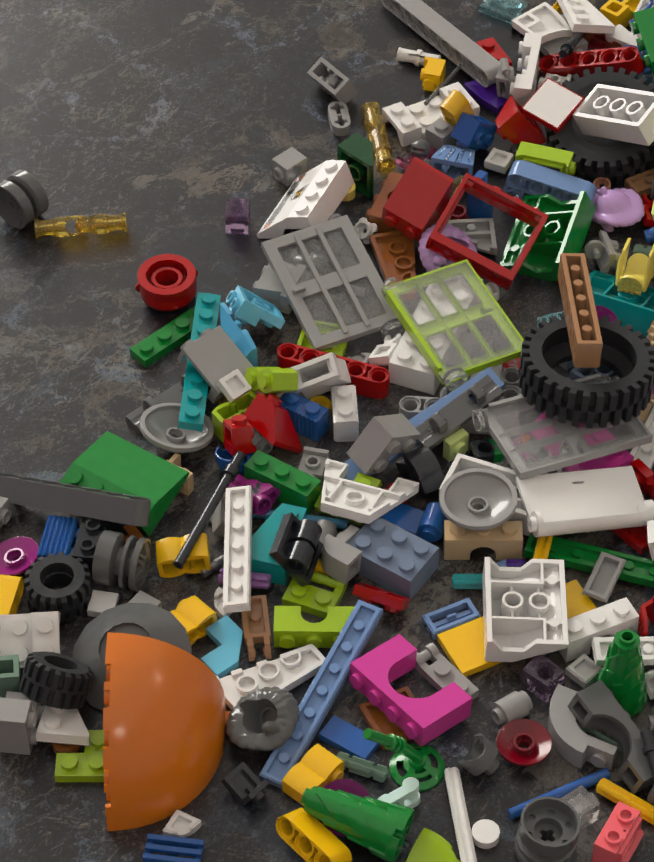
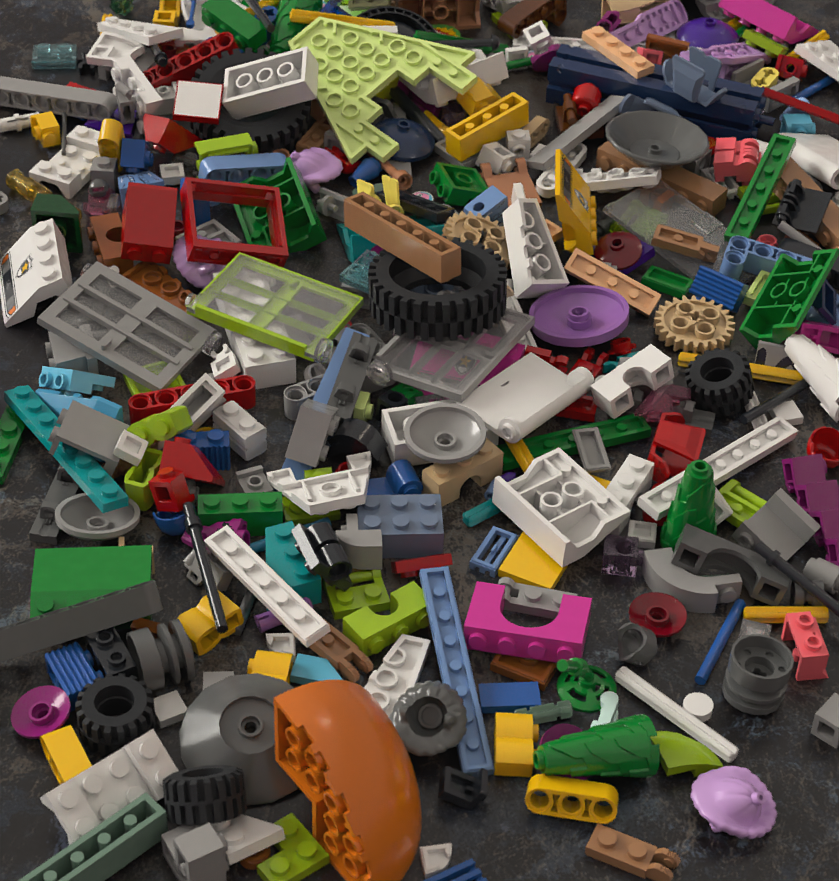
camera: 40 degrees left, 5 degrees down
(511, 707) = (619, 593): light grey brick -> none

